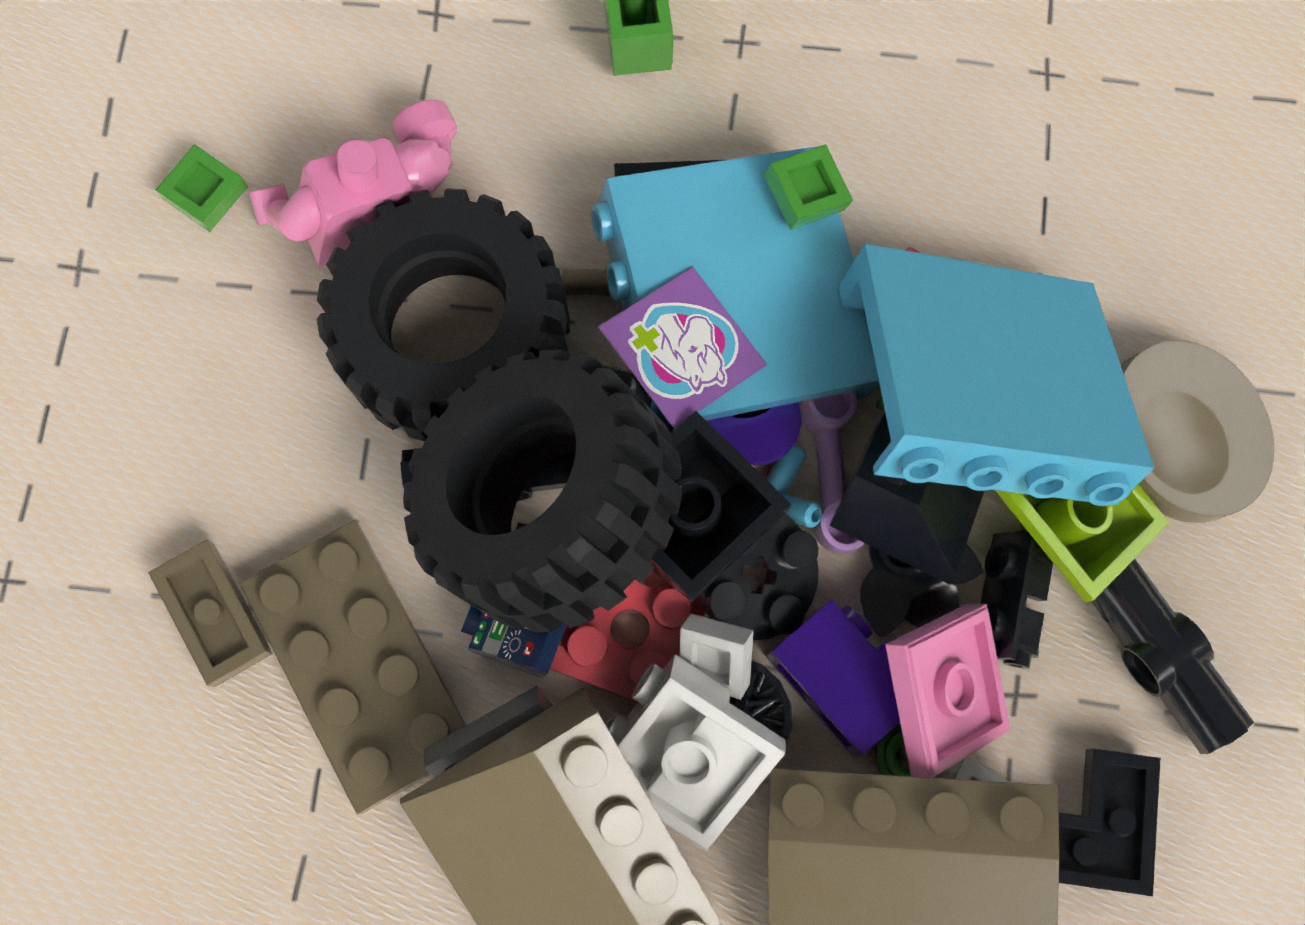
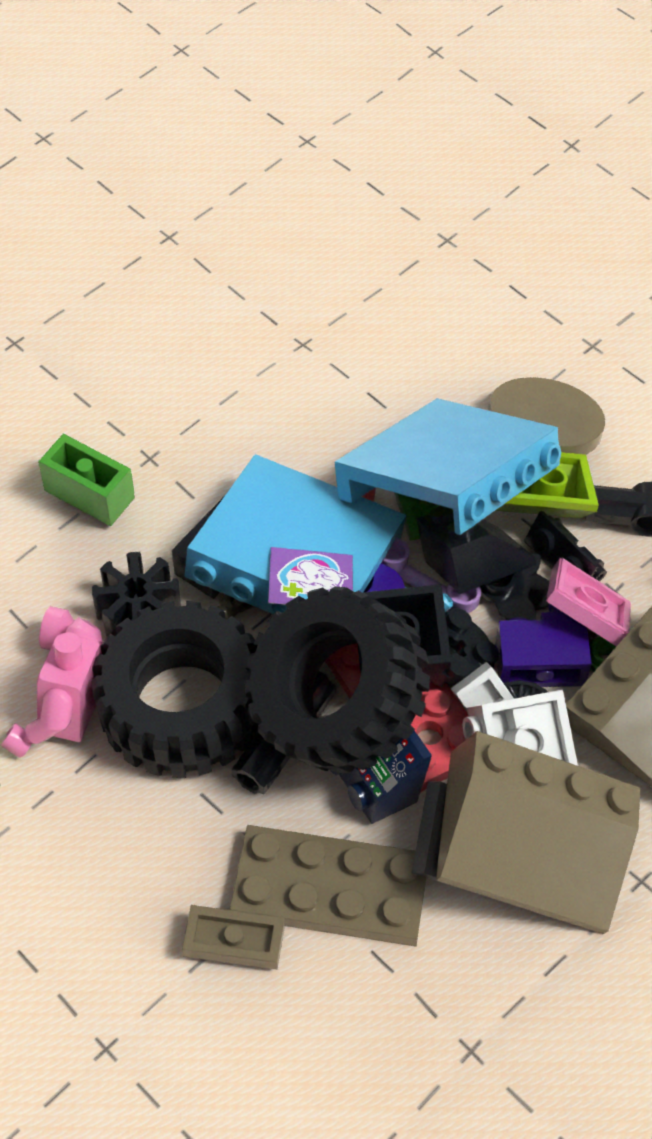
camera: 50 degrees left, 20 degrees down
(562, 170) = (126, 595): none -> black gear
(808, 186) = (277, 469): bright green plate -> none

